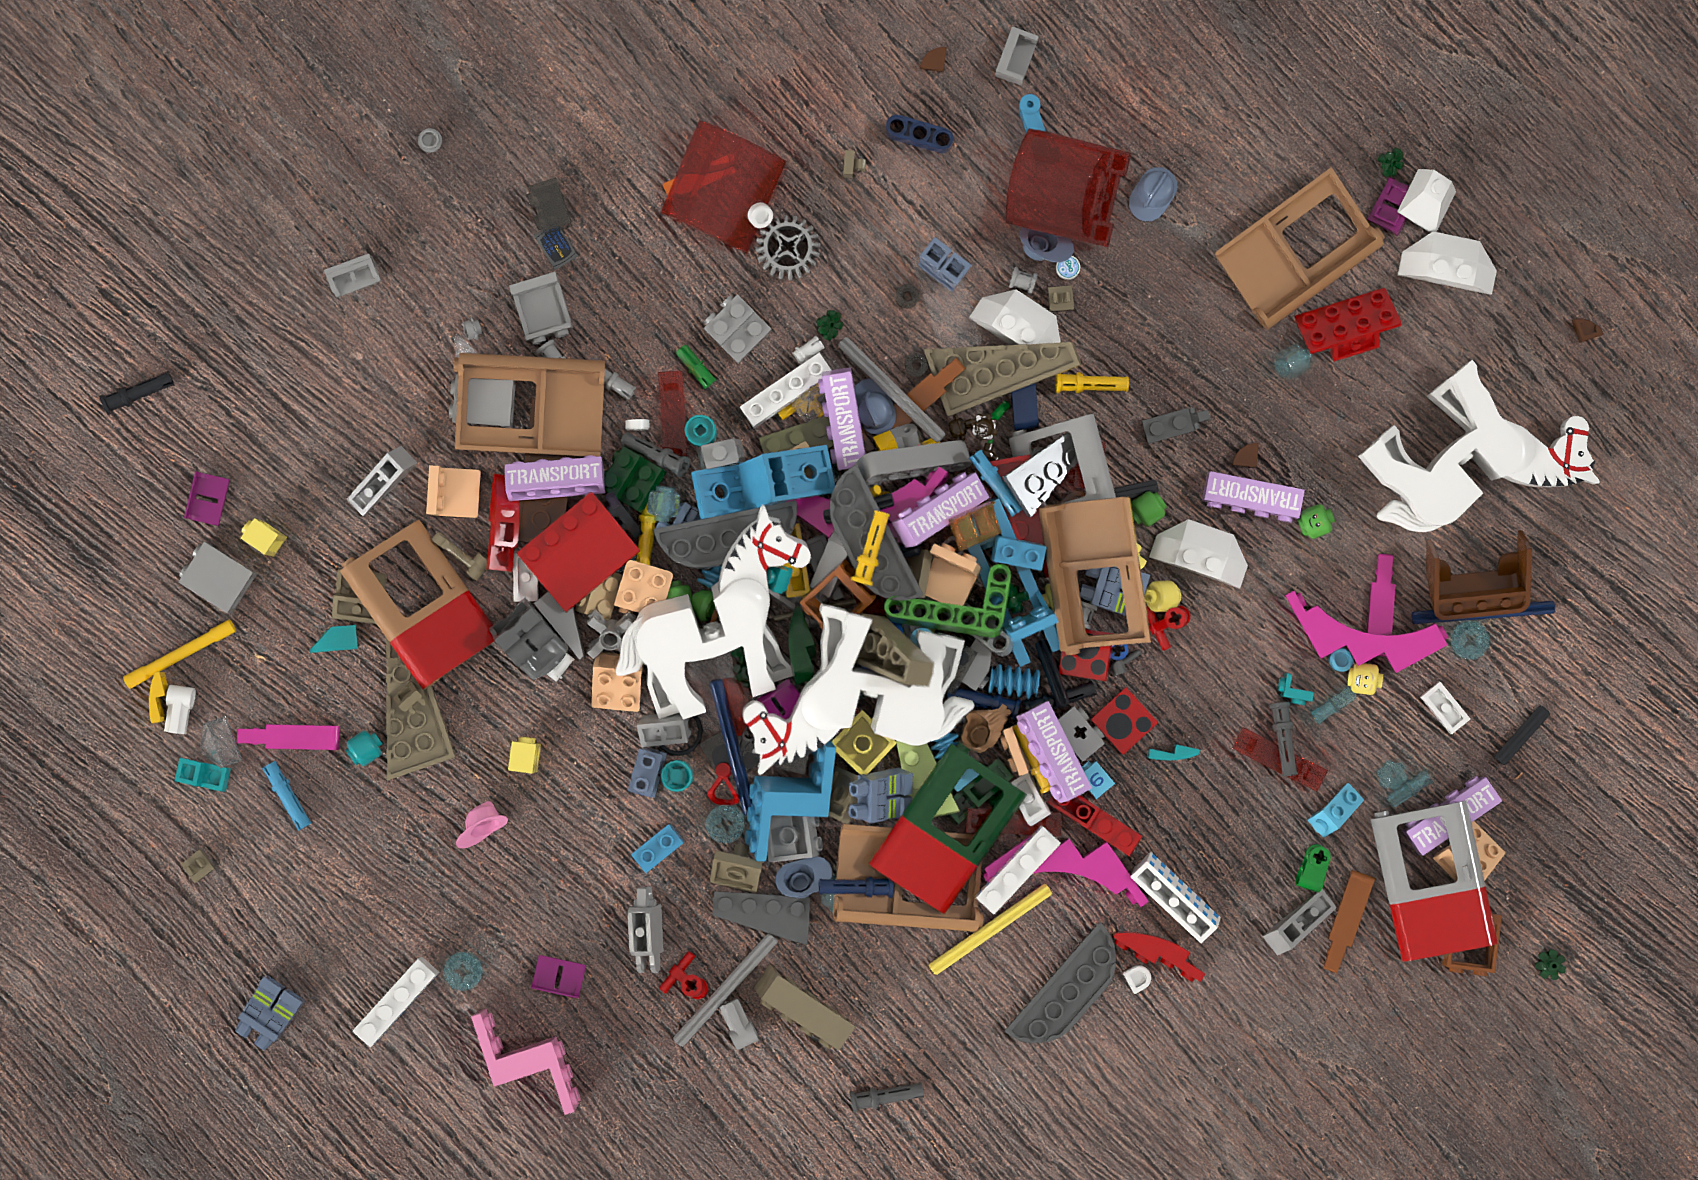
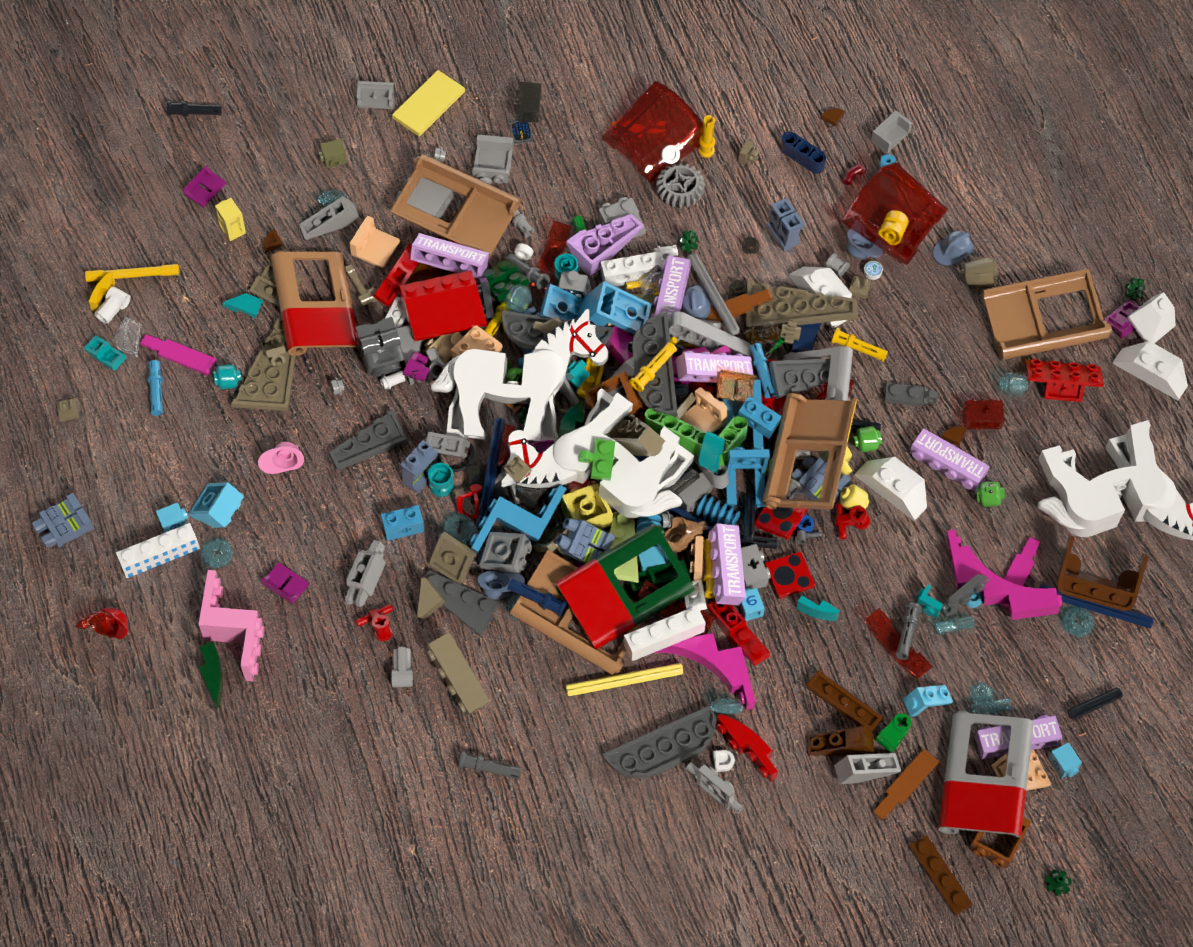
camera: 20 degrees right, 25 degrees down
(216, 577) = (185, 235): light grey panel -> none
(325, 537) = (272, 241): none -> reddish brown tile
(341, 385) = (332, 153): none -> olive brick
(376, 441) = (330, 196): none -> clear light blue gear
(382, 1111) = (106, 622): none -> clear red hair
(391, 954) = (172, 517): none -> medium azure brick
(423, 255) = (428, 103): none -> light yellow tile
(430, 140) = (467, 40): light grey plate -> none
(433, 915) = (216, 504): none -> medium azure slope
(498, 702) = (336, 386): none -> light grey plate
(524, 755) = (337, 422): light yellow brick -> none
(531, 1120) = (212, 672): none -> dark green slope
(576, 751) = (376, 439): none -> dark grey wing
(584, 653) = (416, 369): none -> magenta piece
(614, 691) = (426, 406): light nougat bracket -> none
(720, 535) = (548, 326): none -> dark tan arm
(725, 990) = (405, 641): light grey axle -> none
(726, 378) = (602, 242): none -> lavender wedge
(732, 930) = (429, 599): none -> dark tan slope
(771, 754) = (517, 469): none -> dark tan tile
(796, 173) = (707, 141): none -> yellow pin
(865, 706) = (601, 459): none -> bright green plate
(984, 632) = (710, 451): none -> teal slope
(989, 134) = (852, 171): none -> dark red arm
(1006, 409) = (790, 332): none -> dark tan gear
(1074, 208) = (894, 227): none -> yellow wheel
(1126, 913) = (727, 706): none -> clear light blue gear
(1153, 1023) = (718, 789): none -> light grey plate
(1175, 897) = (777, 708): white brick -> none
(1200, 221) = (980, 272): none -> dark tan helmet
(1245, 854) = (844, 701): none -> reddish brown plate
(1259, 904) = (841, 742): none -> reddish brown slope
(1260, 426) = (983, 414): none -> clear red brick
(1333, 670) = (964, 594): none -> dark grey hinge
(1365, 678) = (986, 613): light yellow head -> none
(1422, 1010) = (940, 875): none -> reddish brown plate
(1445, 707) = (1041, 659): white plate -> none
(1513, 822) = (1065, 761): none -> medium azure brick

